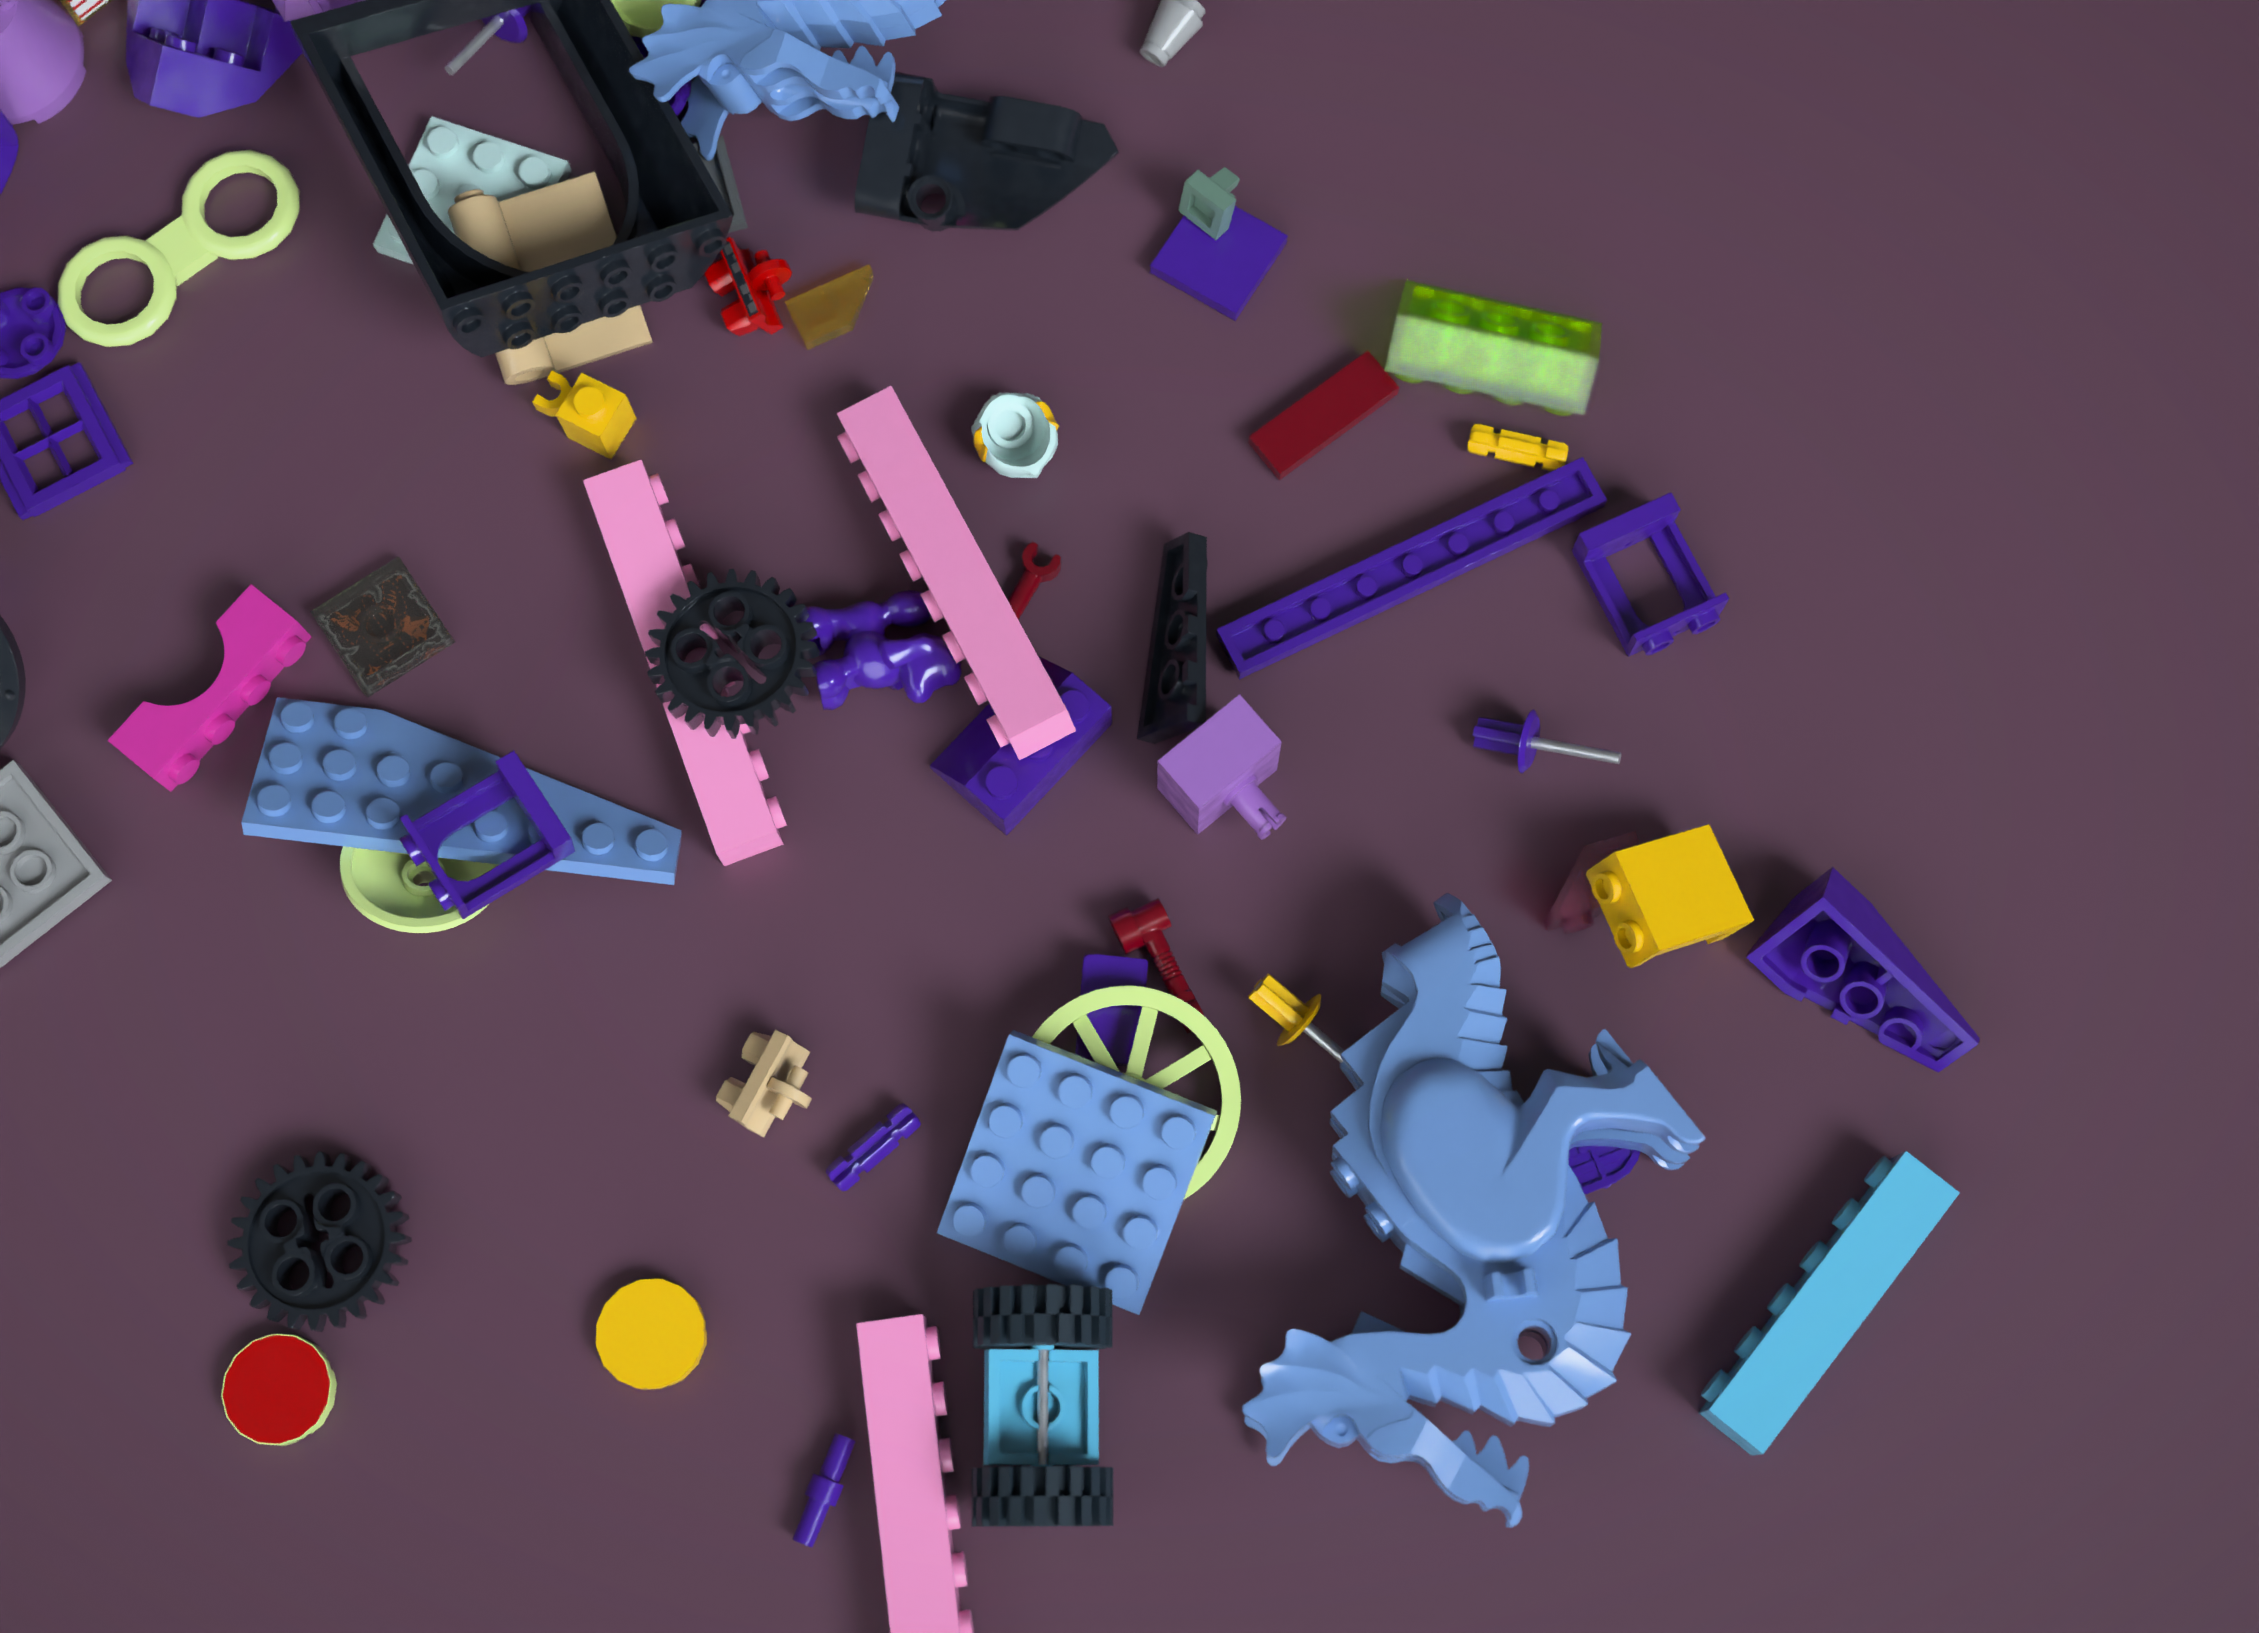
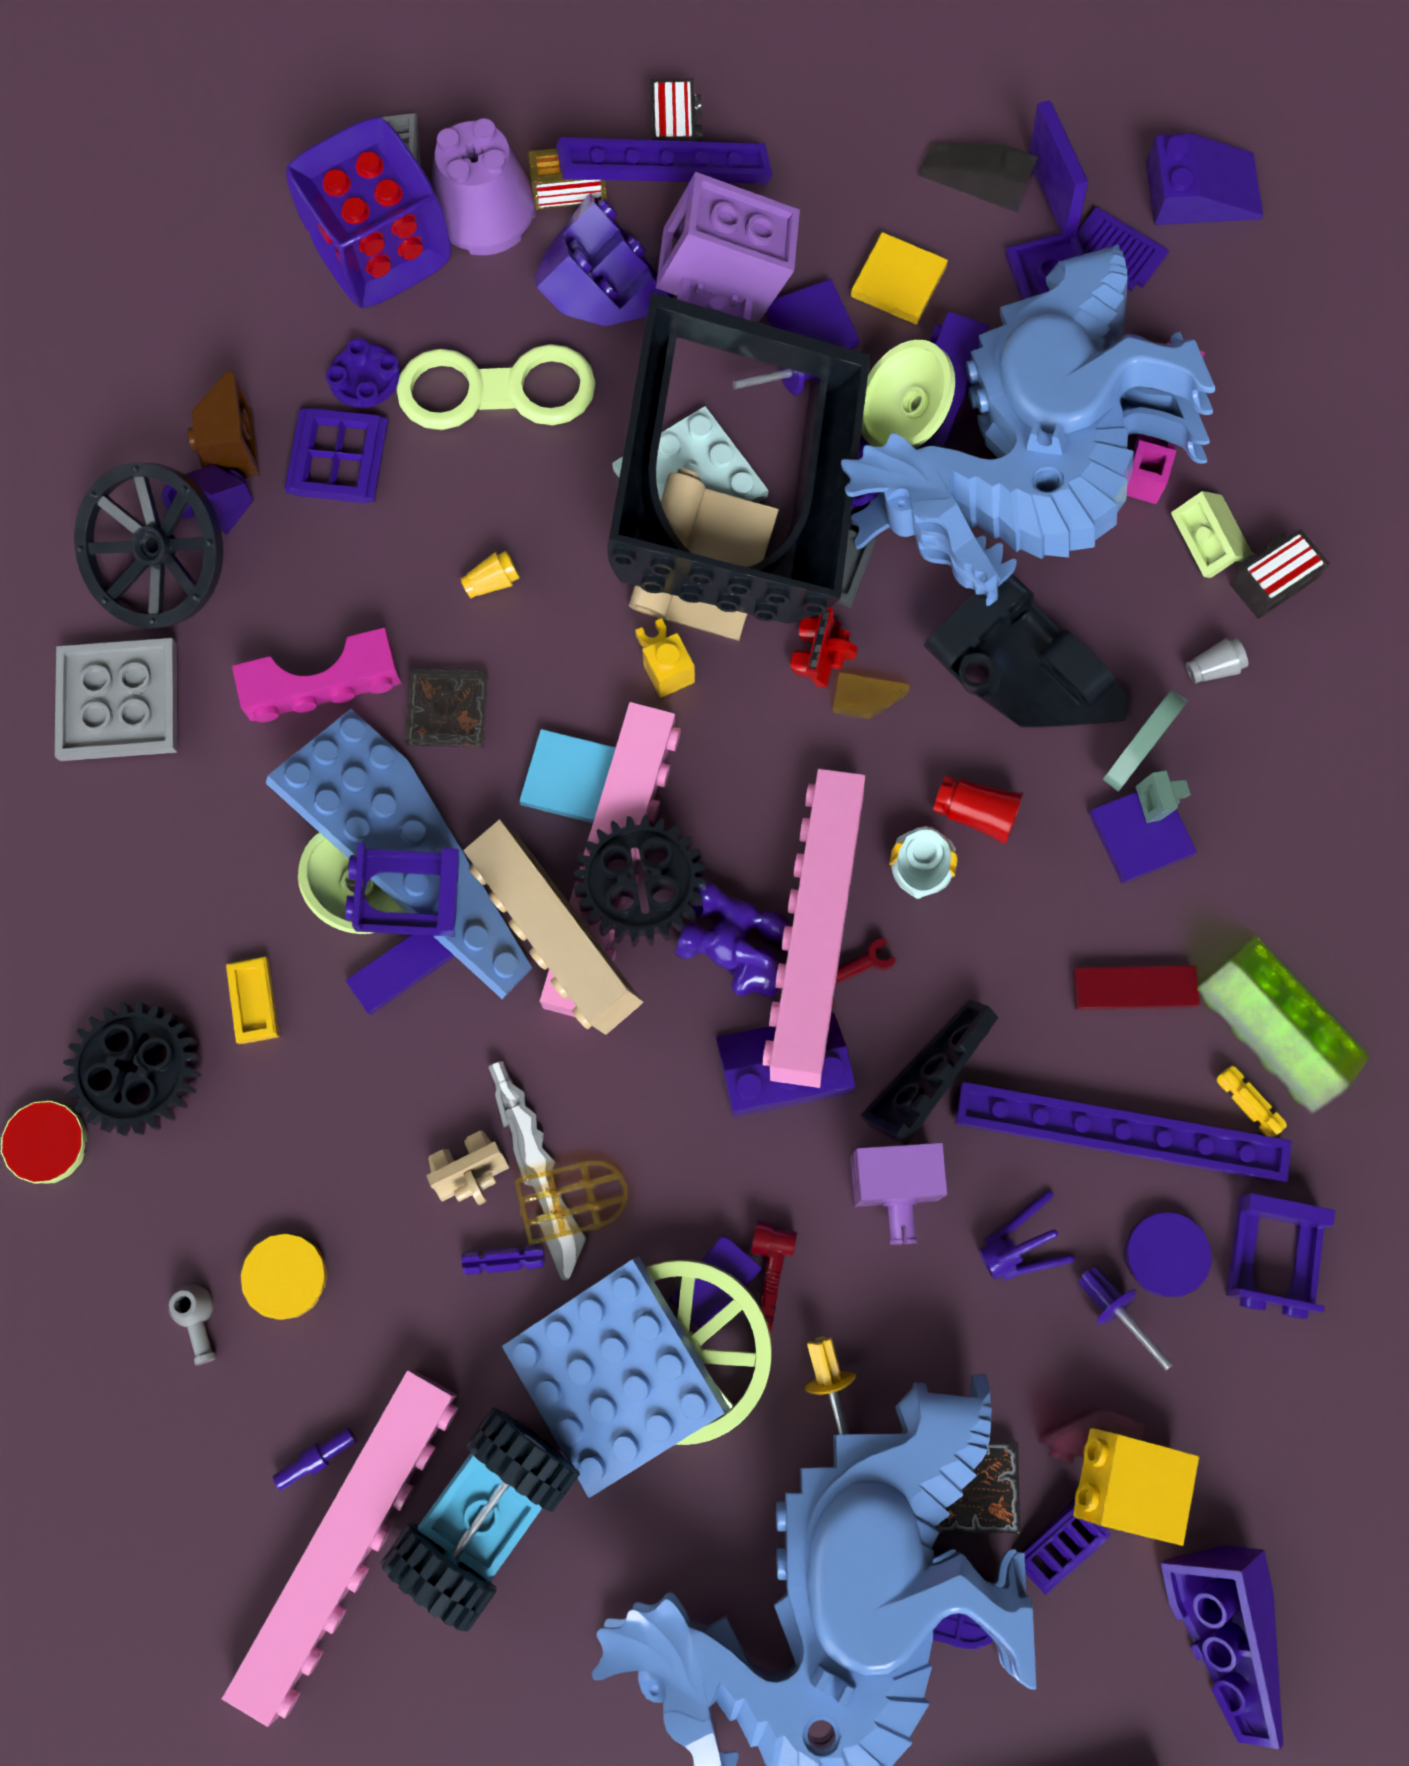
camera: 35 degrees right, 0 degrees up
(327, 452) = (491, 575): none -> yellow cone
(399, 1079) = (252, 1000): none -> yellow tile
(537, 934) = (397, 970): none -> dark purple tile
(571, 607) = (567, 776): none -> medium azure tile
(587, 1448) = (194, 1318): none -> light grey bar
(675, 765) = (553, 929): none -> tan brick
(837, 1030) = (534, 1160): none -> light grey sword
(895, 1060) = (554, 1193): none -> clear yellow window
(1032, 340) = (979, 807): none -> red plant
(1154, 154) = (1145, 739): none -> sand green piece
(1381, 774) = (1002, 1256): none -> dark purple plant
(1538, 1015) = (992, 1498): none -> clear smoke tile
(1543, 656) = (1168, 1255): none -> dark purple tile
(1664, 994) = (1073, 1559): none -> dark purple slope

